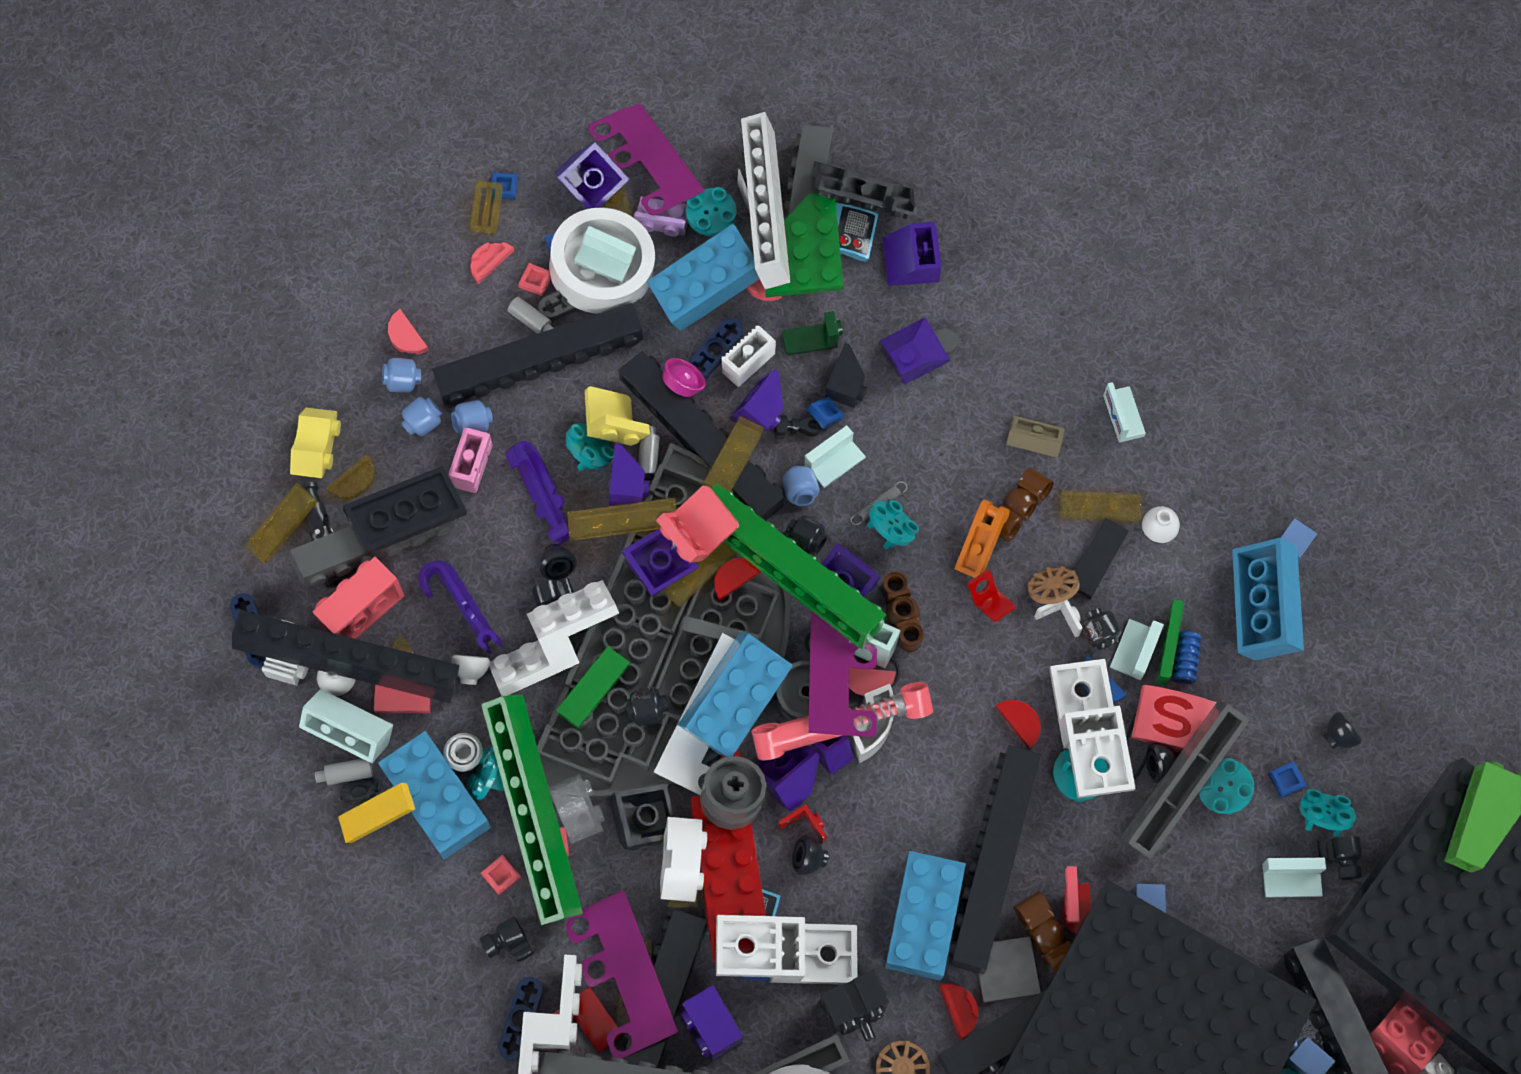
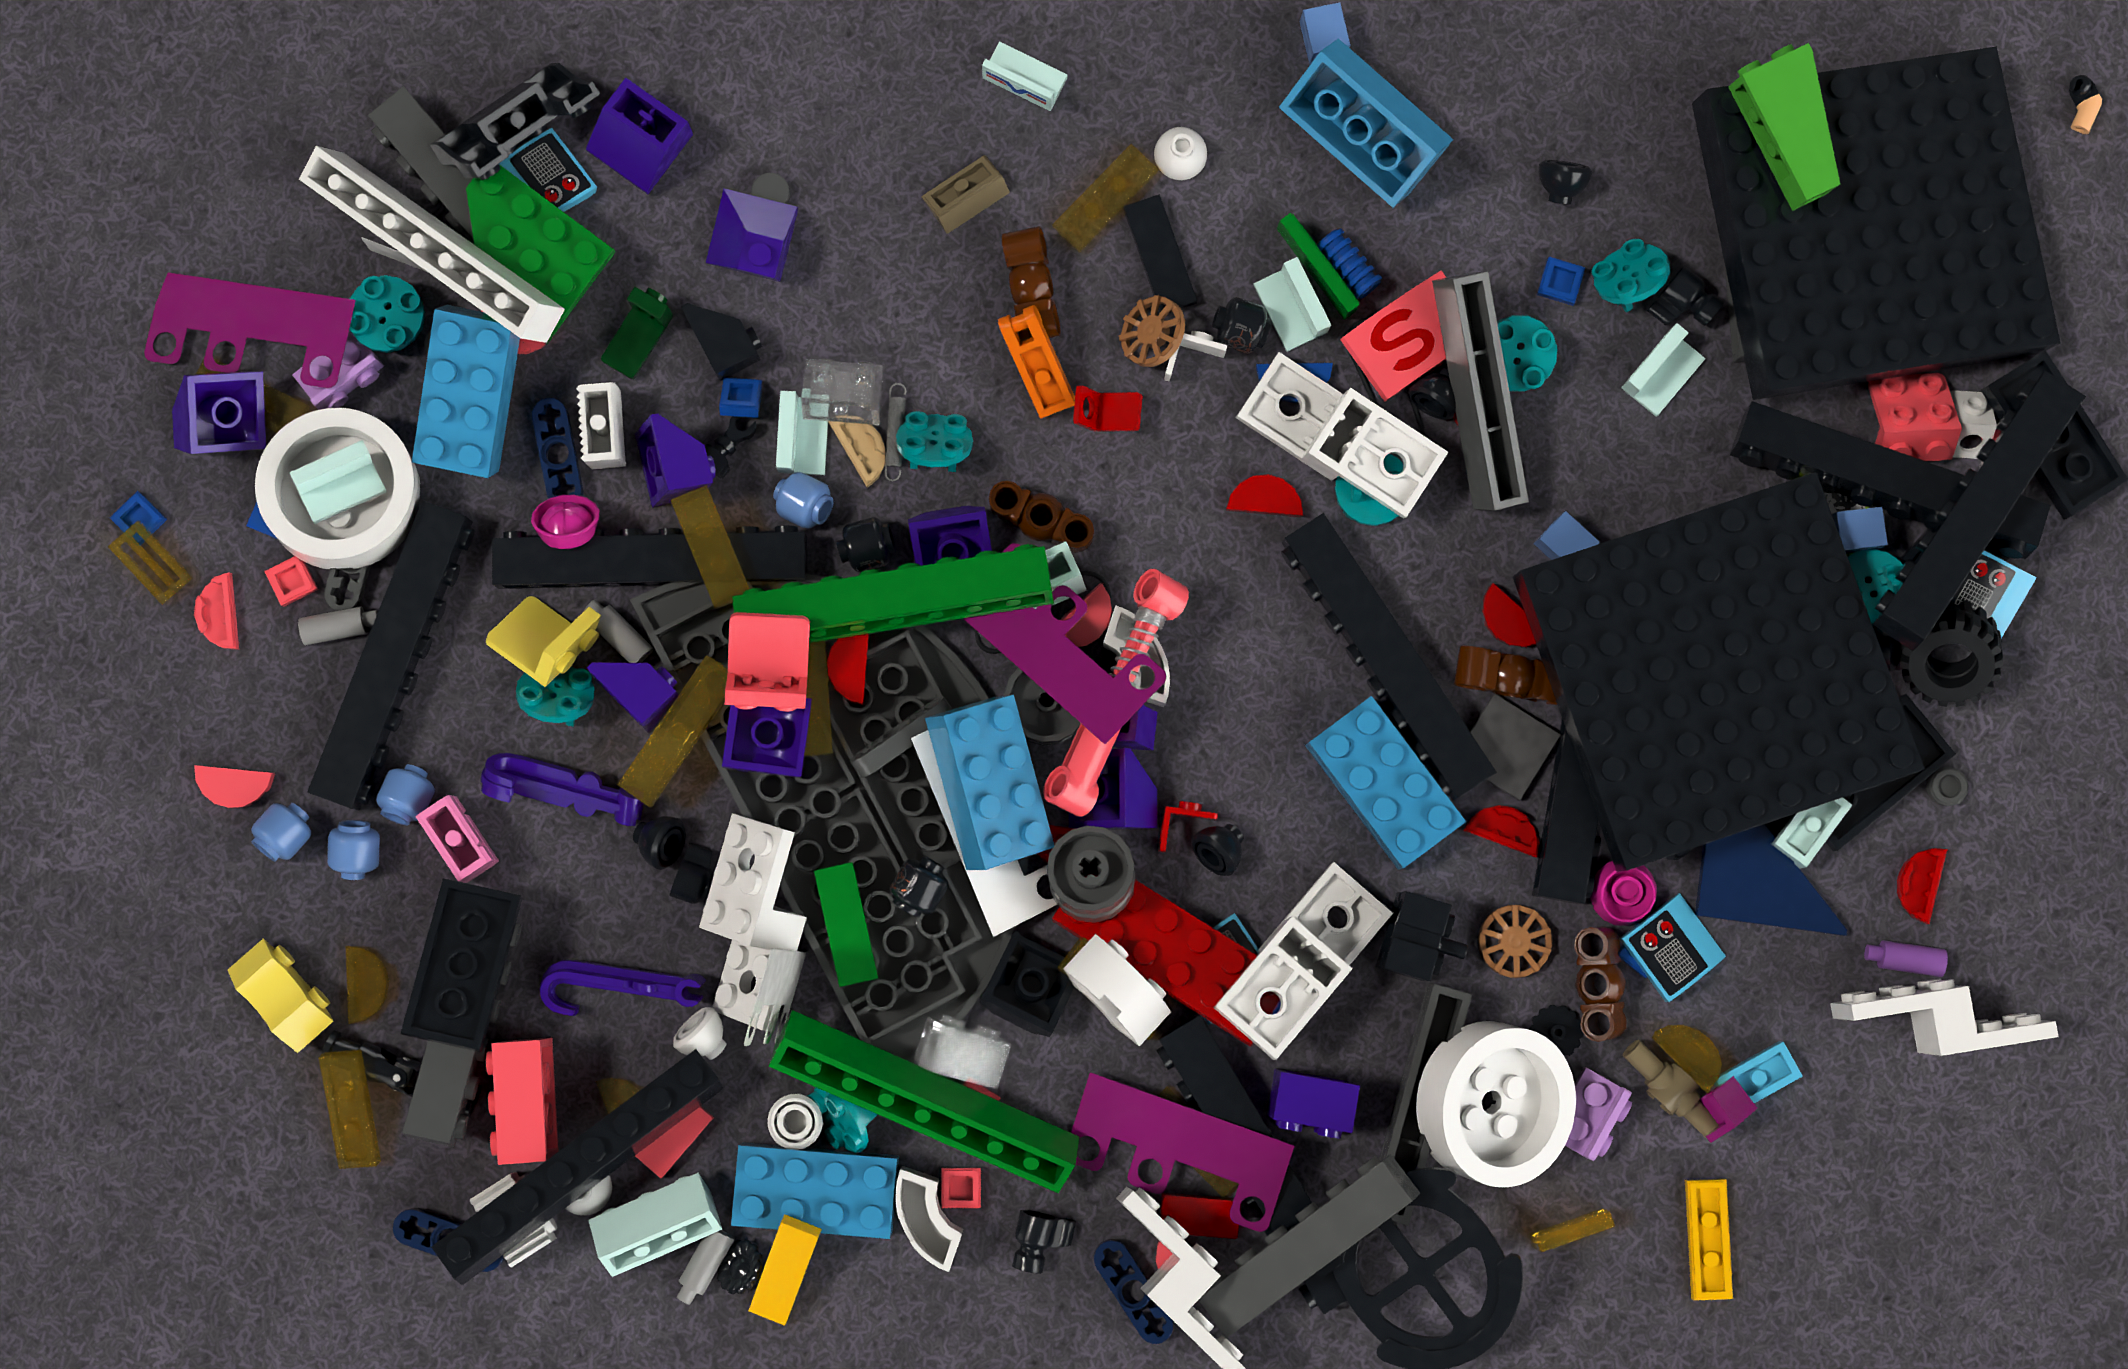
camera: 55 degrees left, 15 degrees up
(465, 866) = (924, 1220): none -> white brick
(532, 666) = (777, 987): none -> white piece
(856, 493) = (863, 448): none -> tan tile
(875, 457) = (842, 391): none -> clear brick
(1071, 895) = (1496, 617): coral tile -> none

